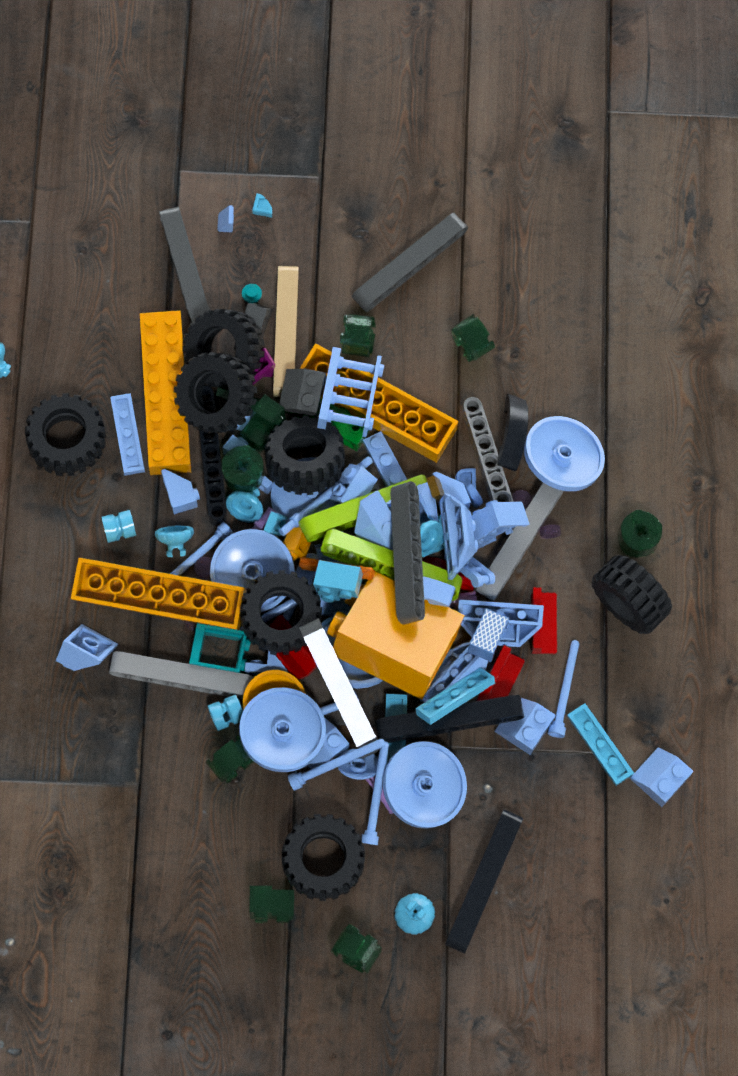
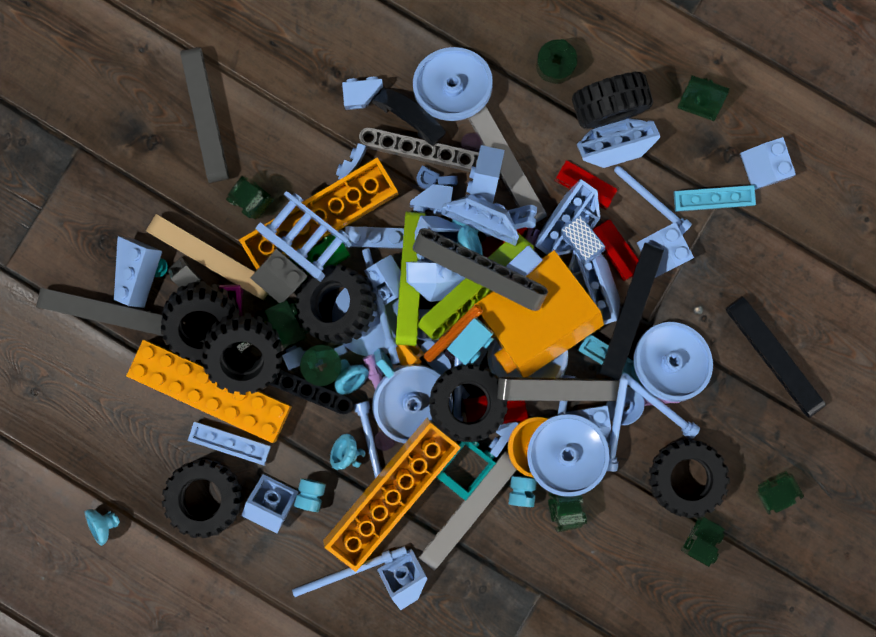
camera: 55 degrees left, 15 degrees up
(91, 495) = (269, 503): none -> light blue slope
(96, 624) = (386, 558): none -> light blue bar
(180, 492) = (308, 426): light blue slope -> none
(226, 219) = (76, 252): light blue slope -> none
(236, 274) = (134, 271): none -> light blue wedge
(262, 206) = (80, 213): medium azure tile -> none
(414, 922) = (762, 425): medium azure hair -> none
(435, 487) = (427, 210): pearl gold tile -> none
(449, 407) = (348, 167): none -> light blue slope
(455, 695) = (618, 297): medium azure plate -> none
(472, 337) = (306, 101): clear green brick -> none
(507, 380) = (360, 93): none -> light blue slope
(550, 531) = (512, 134): clear purple tile -> none
(597, 626) = (618, 142): none -> light blue wedge
(686, 680) = (703, 98): none -> clear green tile

